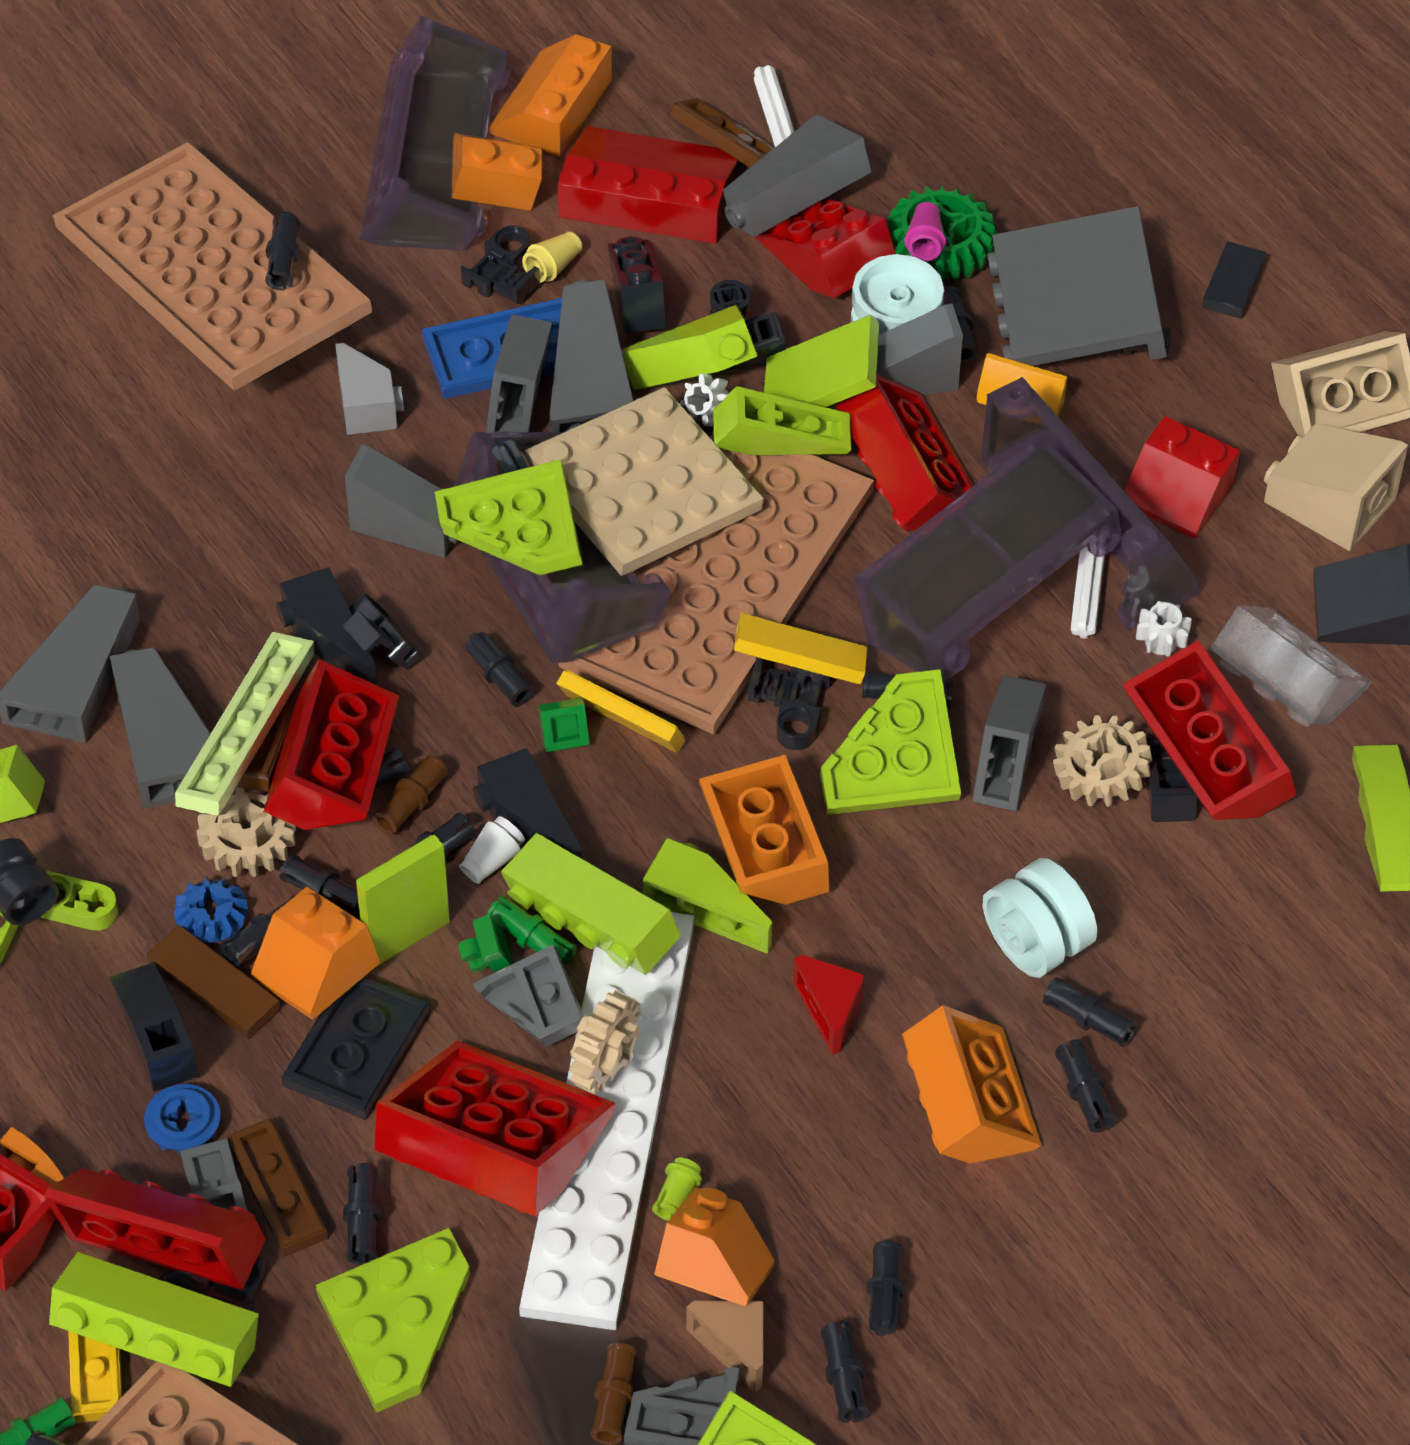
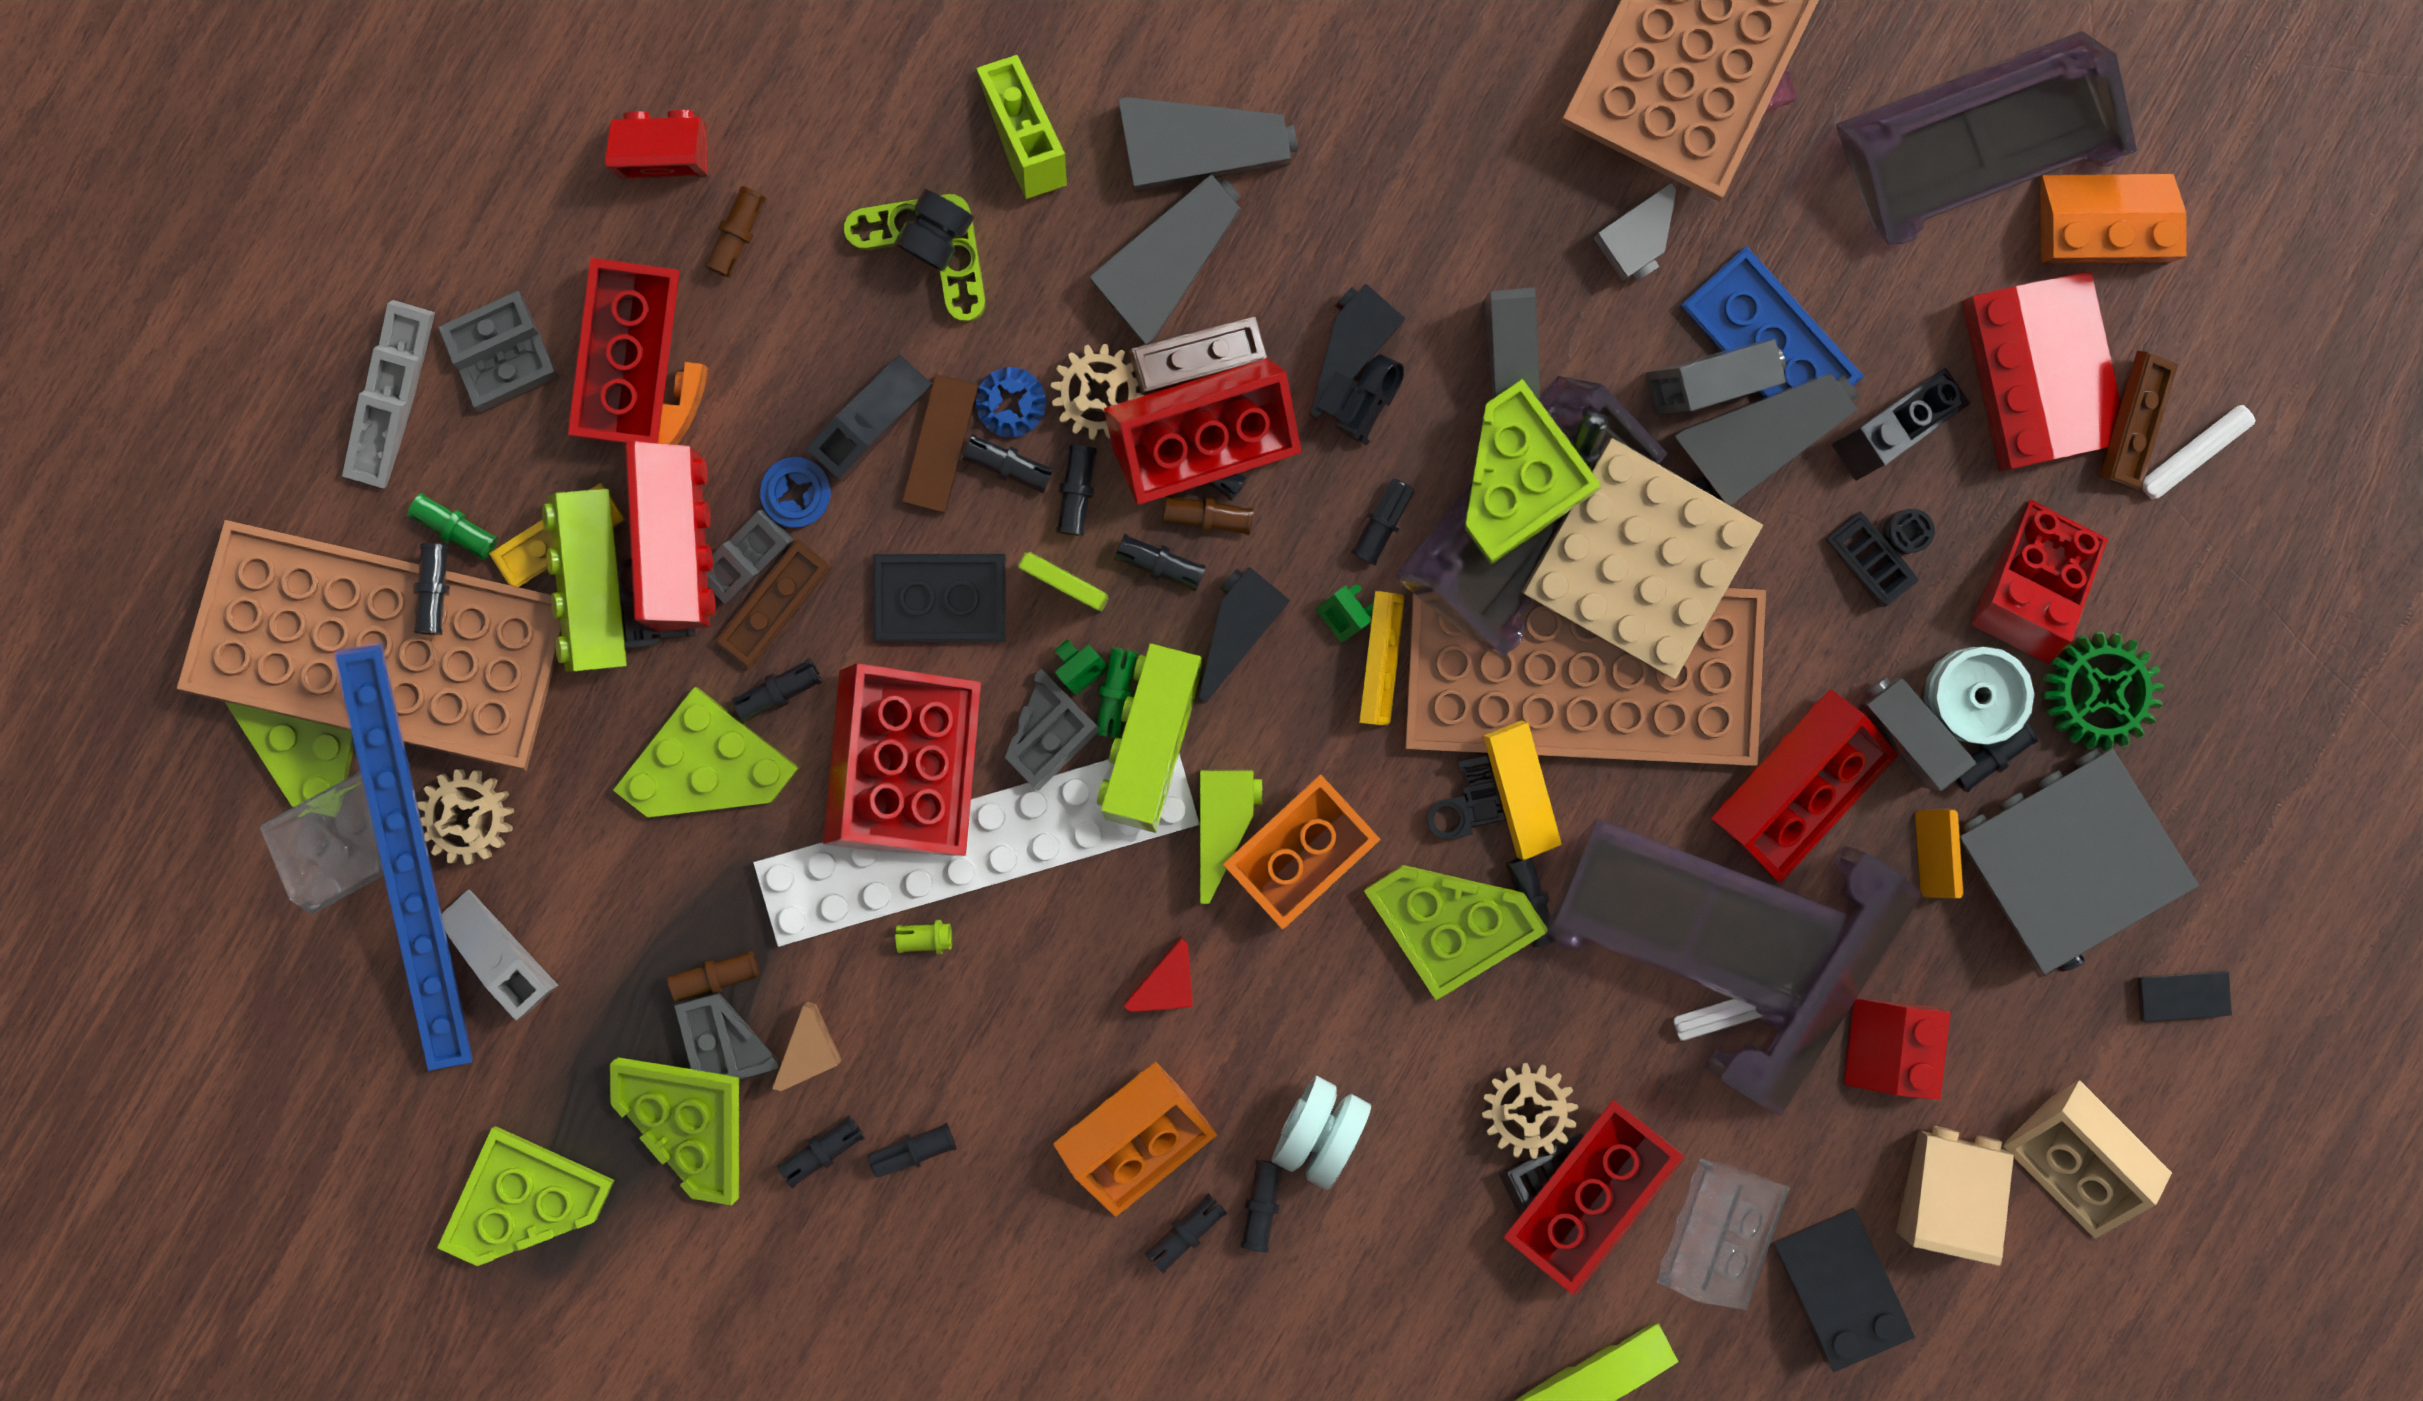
camera: 65 degrees right, 35 degrees up
(244, 724) = (1192, 339): yellowish green plate -> none
(282, 251) = (1743, 80): black pin -> none
(313, 953) = (993, 521): orange slope -> none
(492, 849) = (1183, 616): white cone -> none
(495, 171) = (1982, 215): orange slope -> none
(506, 274) = (1854, 284): black piece -> none
(552, 255) = (1896, 325): light yellow cone -> none
(605, 1041) = (1002, 828): tan gear -> none
(690, 350) = (1828, 530): lime slope -> none
(697, 394) = (1780, 565): white gear -> none
(714, 1248) = (866, 1005): orange slope -> none
(777, 425) = (1766, 657): lime slope -> none
(796, 175) = (2104, 520): dark grey slope -> none
(827, 366) = (1856, 662): lime tile -> none
(925, 233) = (2074, 688): dark pink cone -> none
(1008, 742) = (1514, 1020): dark grey slope -> none
(1163, 628) = (1715, 1114): white gear -> none

